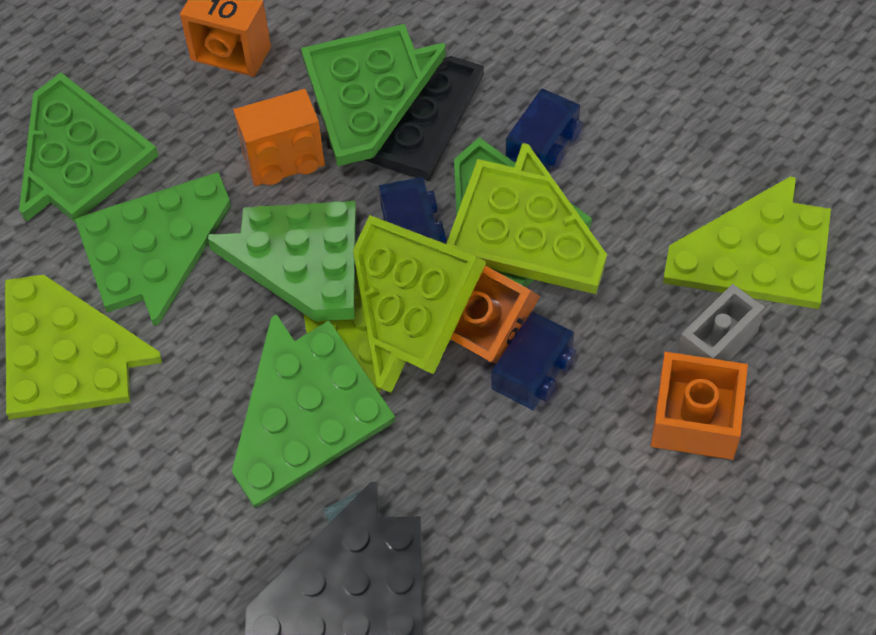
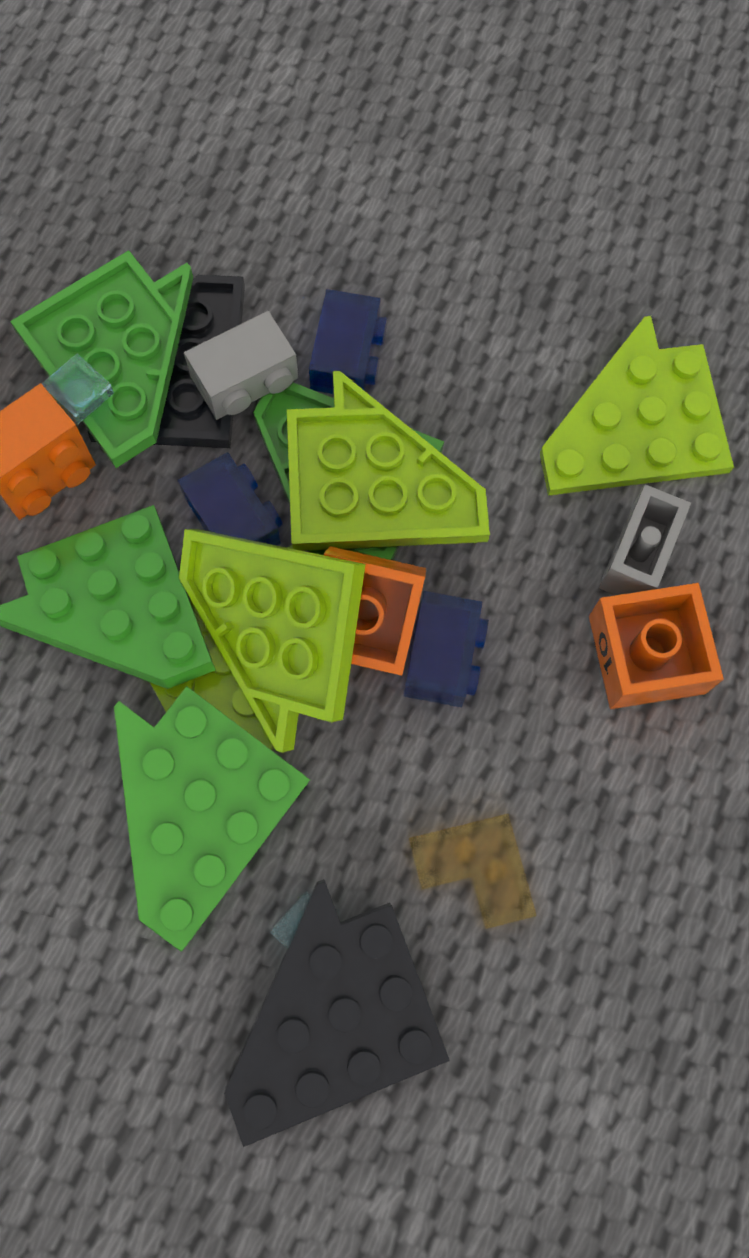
camera: 25 degrees left, 15 degrees up
(331, 101) = (78, 388): none -> clear light blue plate
(457, 121) = (242, 365): none -> light grey brick
(509, 517) = (485, 854): none -> clear yellow tile

